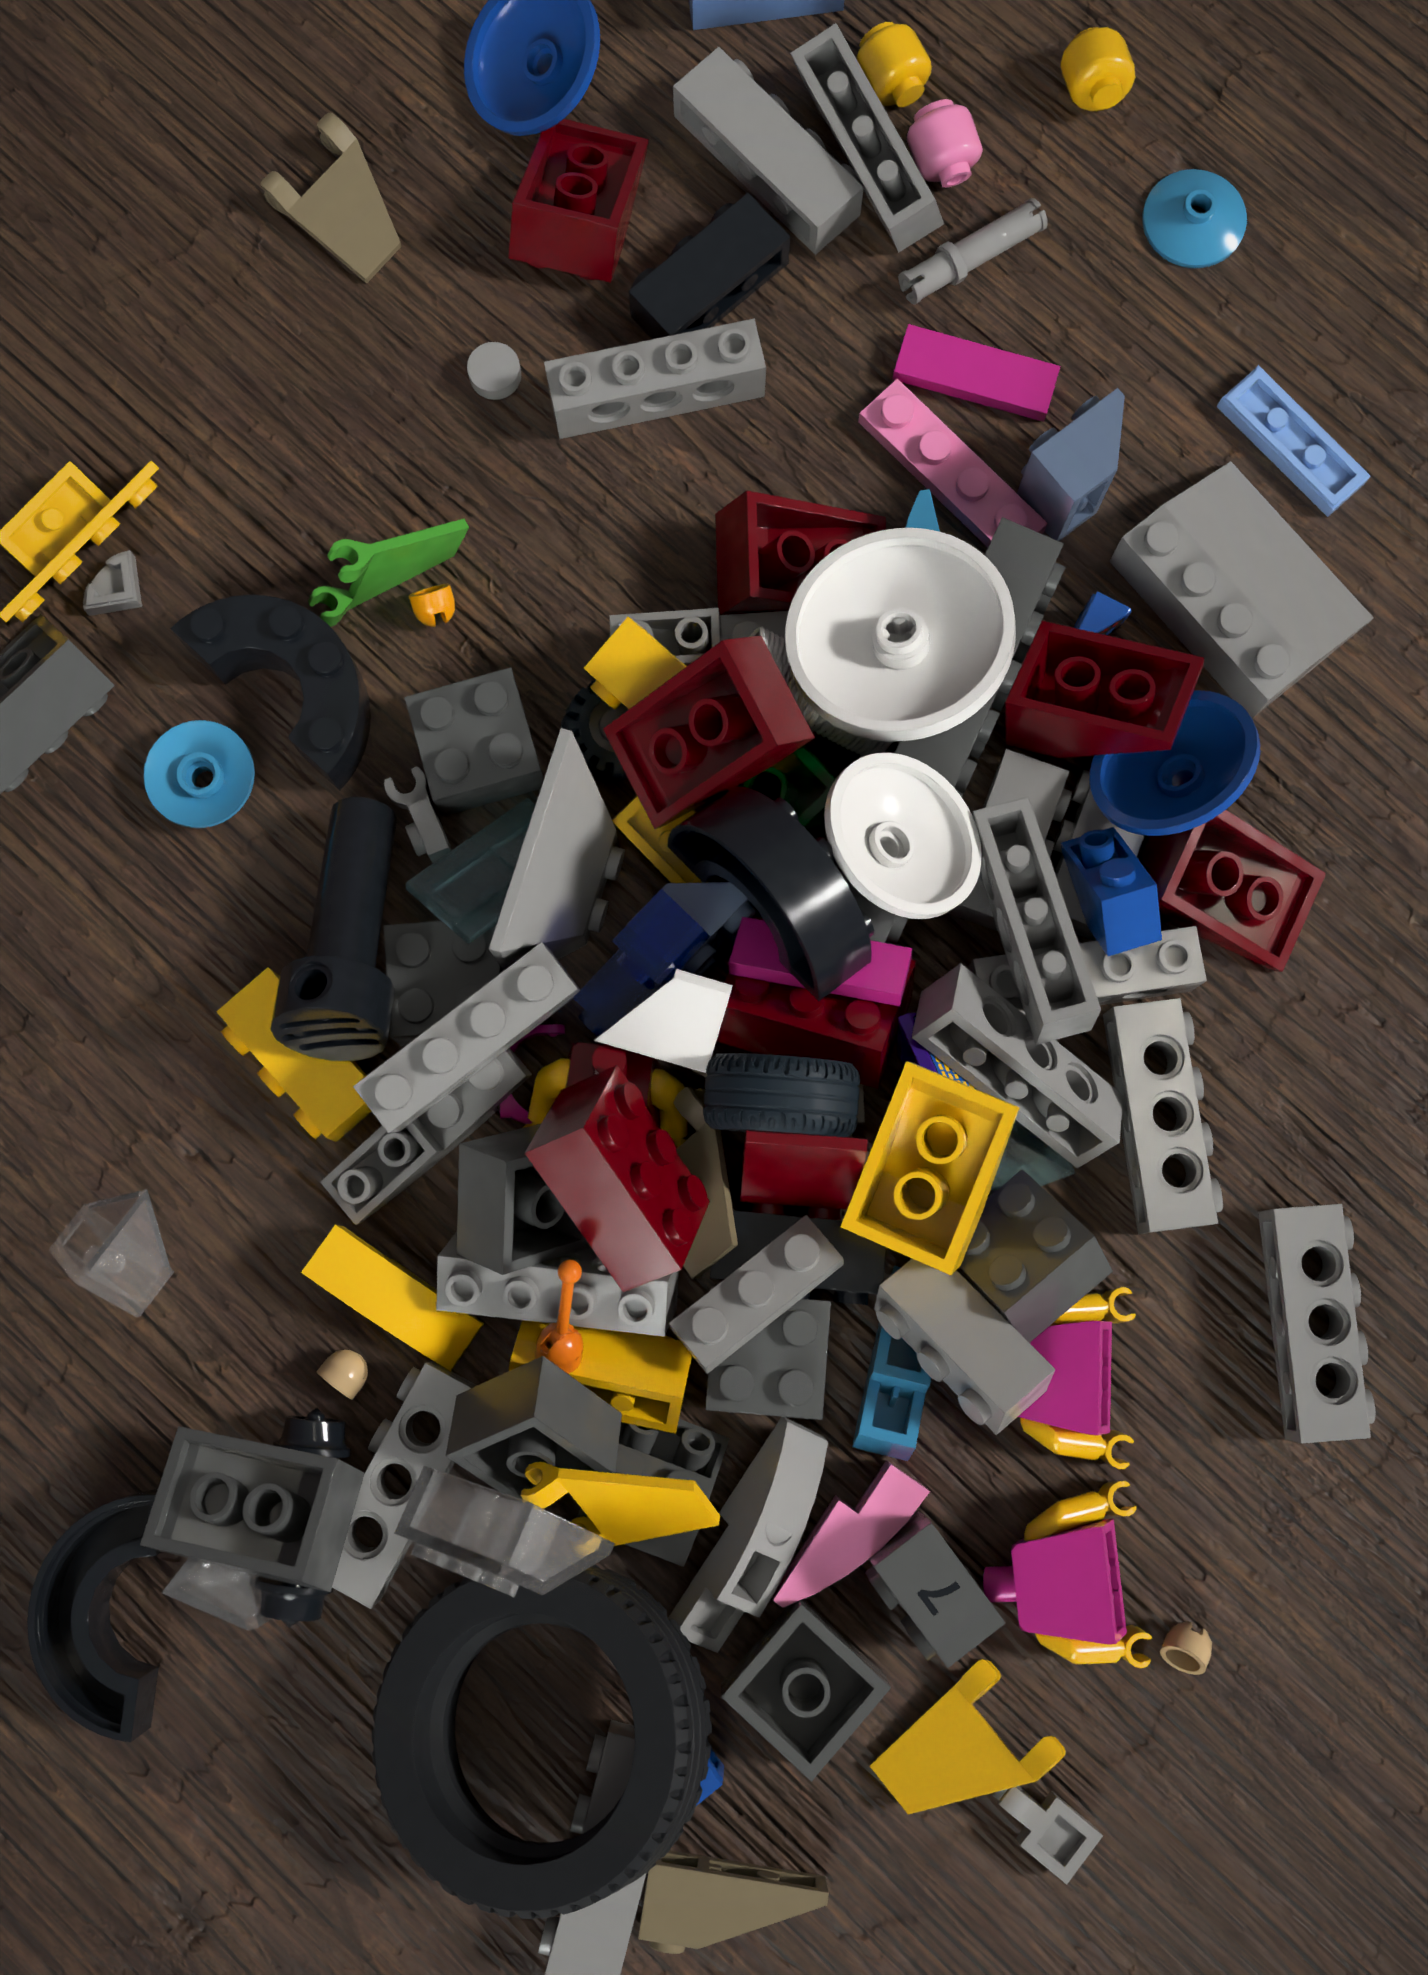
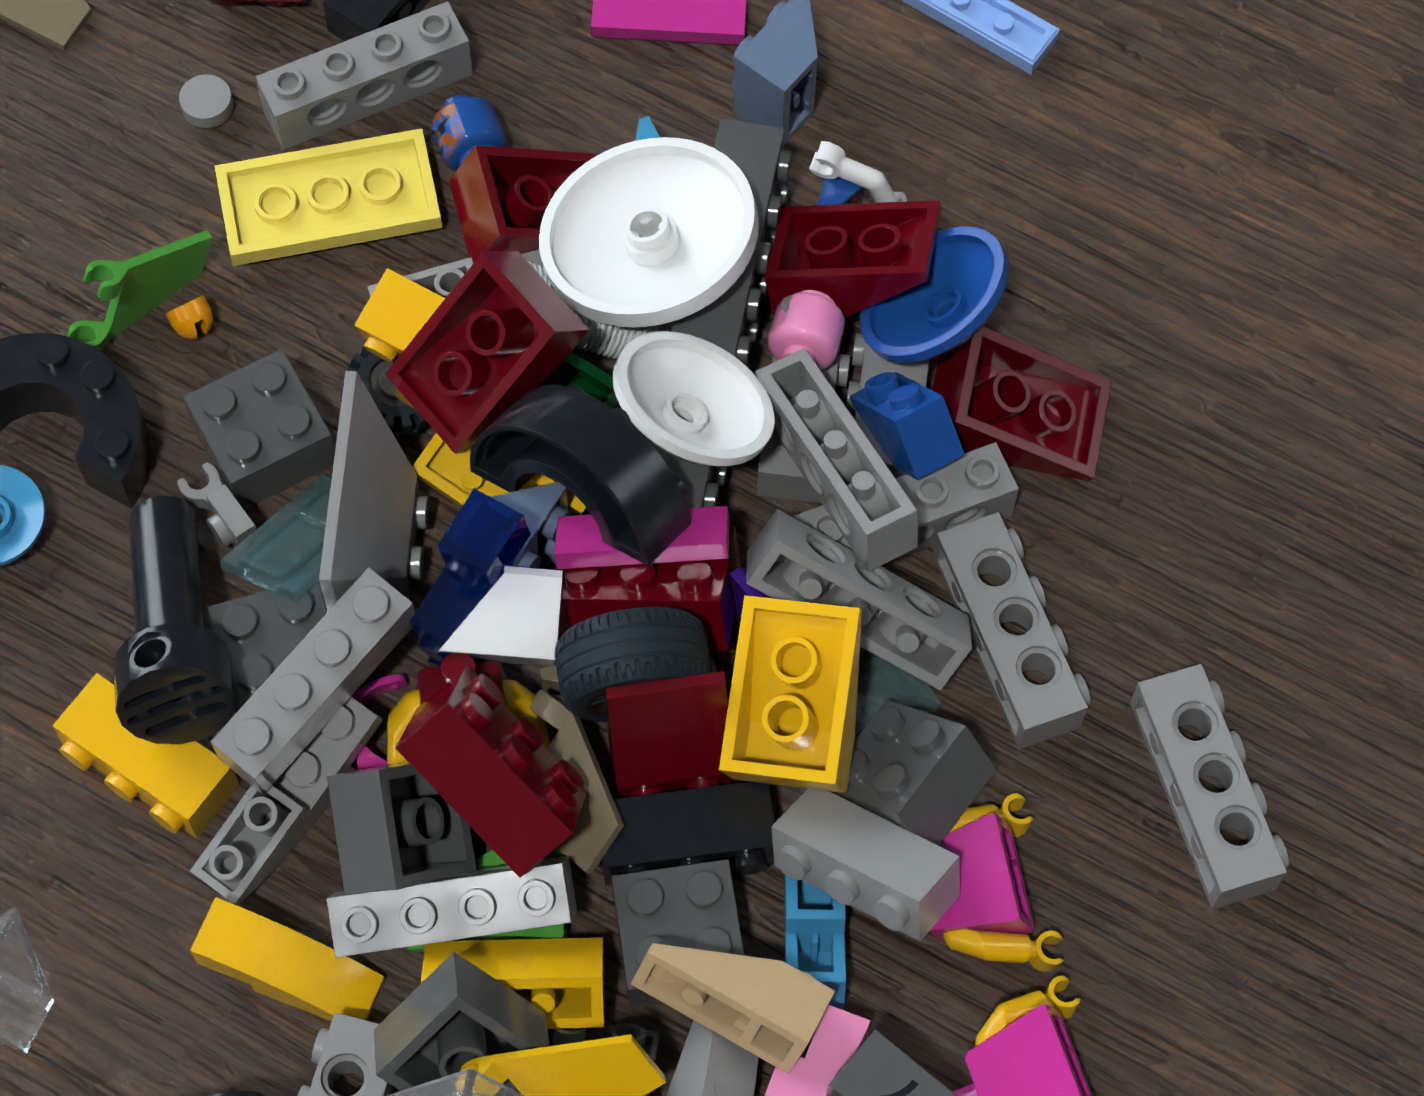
camera: 15 degrees left, 15 degrees down
(345, 1372) = (252, 1053): tan hinge -> none
(565, 1340) = (467, 943): orange hinge -> none
(592, 503) = (327, 197): none -> light yellow plate
(744, 461) = (462, 125): none -> blue head
(756, 1294) = (652, 864): light grey plate -> none
(823, 1459) = (741, 997): none -> tan slope
(945, 464) = (648, 90): bright pink plate -> none
(1035, 766) = (807, 322): none -> bright pink head
(1105, 586) = (832, 163): none -> white arm
(1239, 587) = (963, 143): light grey slope -> none

